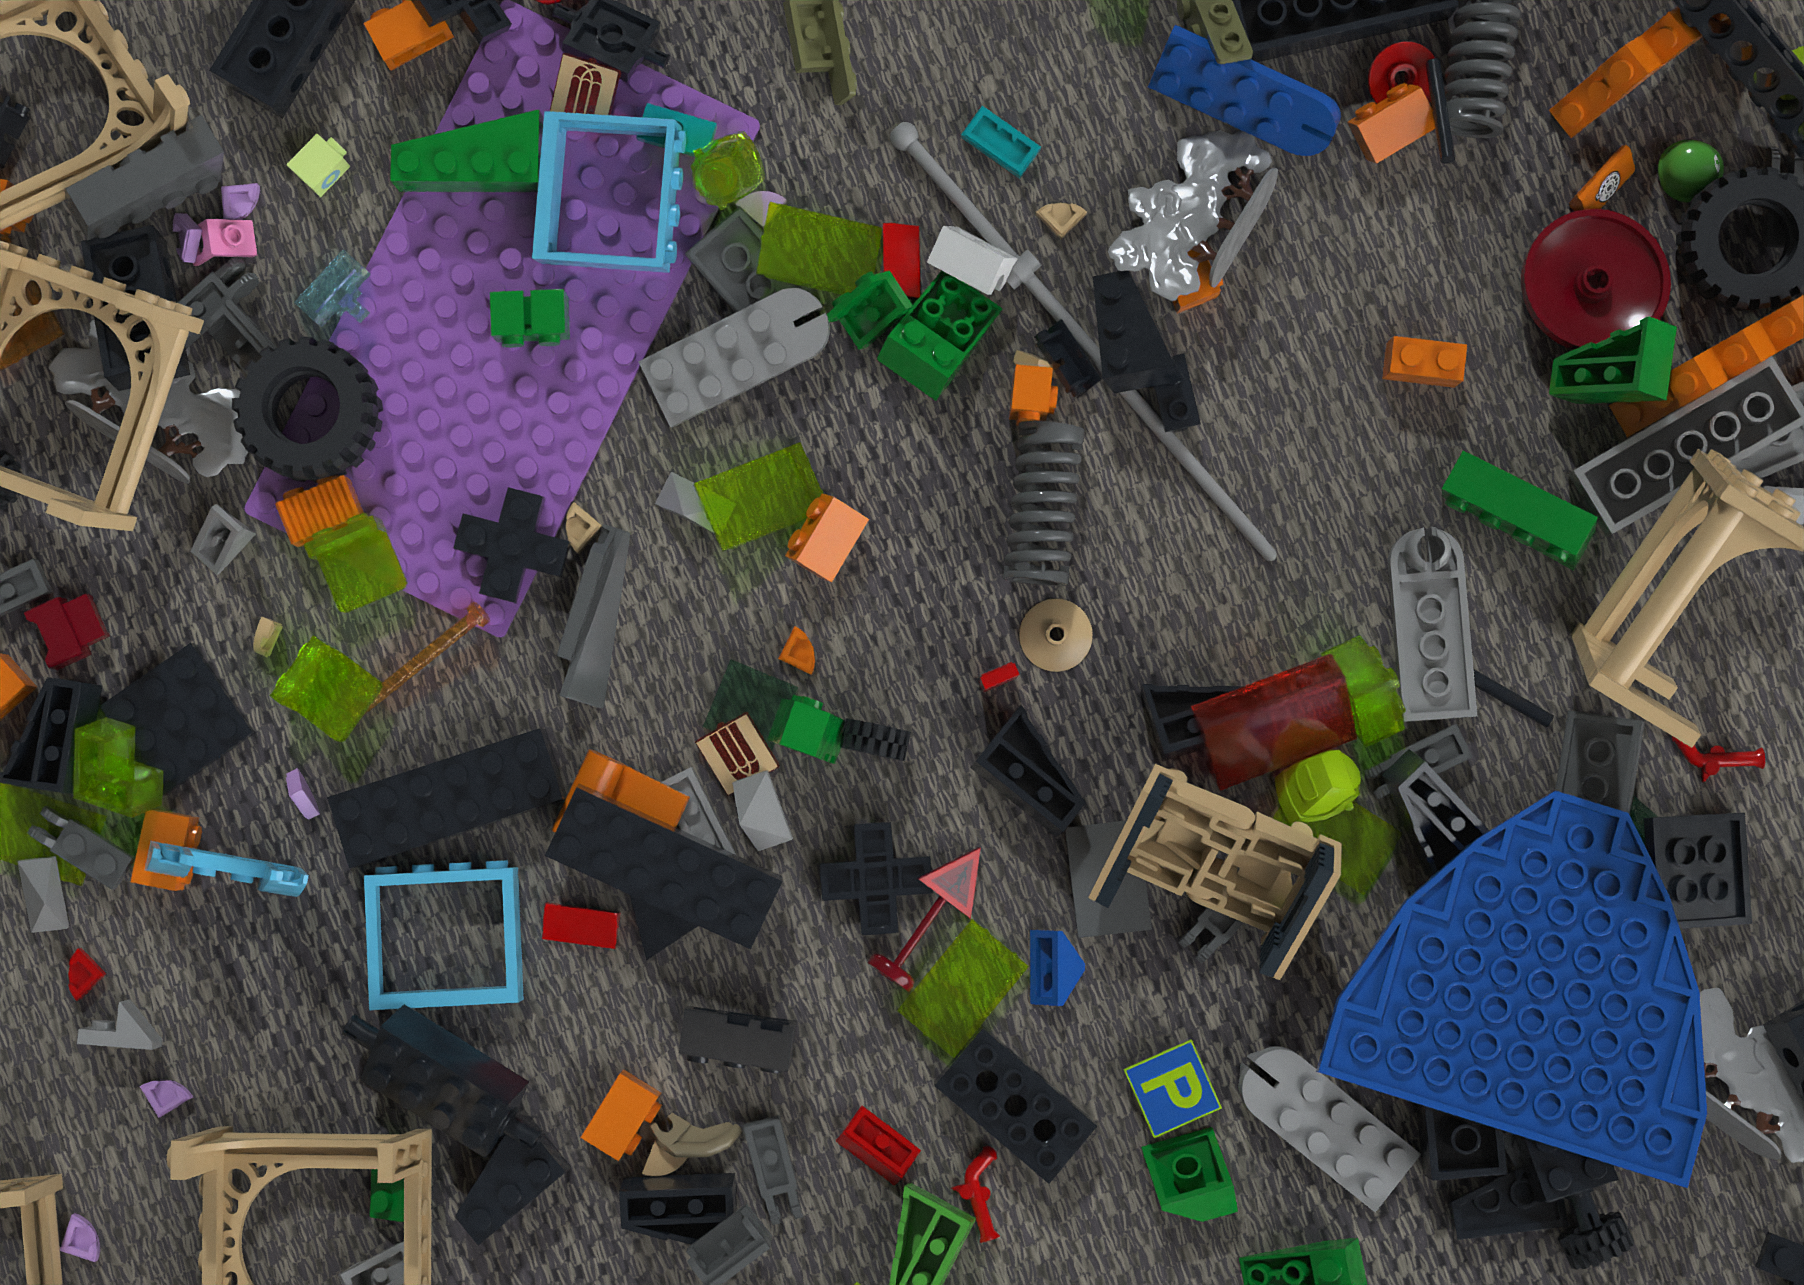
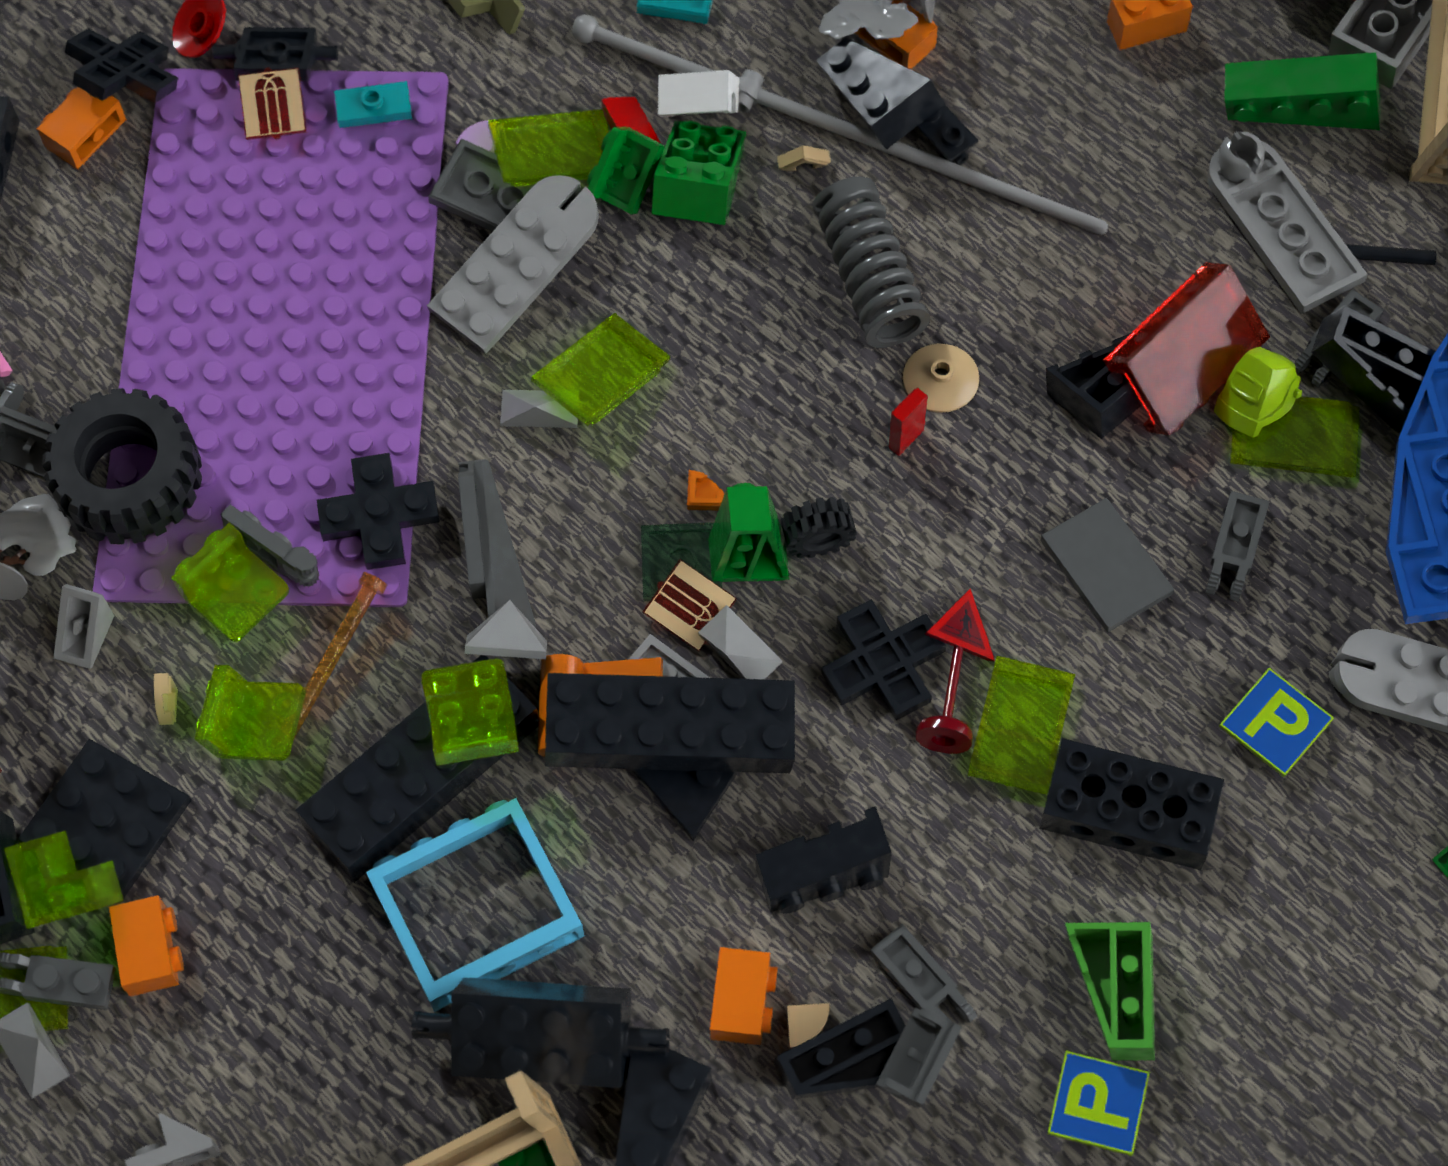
camera: 25 degrees left, 20 degrees down
(83, 974) = (105, 1115): red tile -> none
(178, 860) = (163, 922): medium azure wedge -> none
(301, 794) = (260, 826): lavender tile -> none
(318, 508) = (157, 558): orange brick -> none
(319, 164) = (42, 265): yellowish green brick -> none
(335, 291) = (105, 364): clear light blue hinge -> none
(407, 542) = (273, 547): none -> dark grey hinge
(473, 158) = (191, 195): green wedge -> none
(497, 795) = (470, 711): none -> clear neon green bracket
(530, 318) = (308, 310): green piece -> none
(550, 188) = (310, 113): medium azure window -> none
(566, 721) = (507, 635): none -> light grey slope
(580, 527) = (440, 471): tan tile -> none
(580, 925) = (609, 832): red slope -> none
(692, 1141) = (822, 991): dark tan piece -> none
(727, 169) = (435, 114): clear neon green helmet -> none
(826, 537) = (680, 376): orange brick -> none
(878, 1145) = (1016, 915): red slope -> none
(979, 1194) = (1134, 912): red piece -> none
(1029, 775) = (982, 498): black wedge -> none
(1032, 394) = (809, 171): orange brick -> none
(1053, 967) = (1097, 665): blue slope -> none
(1061, 217) = (761, 38): tan tile -> none
(1061, 347) = (842, 146): black hinge -> none
(1175, 845) = (1240, 454): tan container -> none
(1191, 1176) = (1345, 792): green slope -> none
(1371, 690) = (1268, 289): clear neon green brick -> none

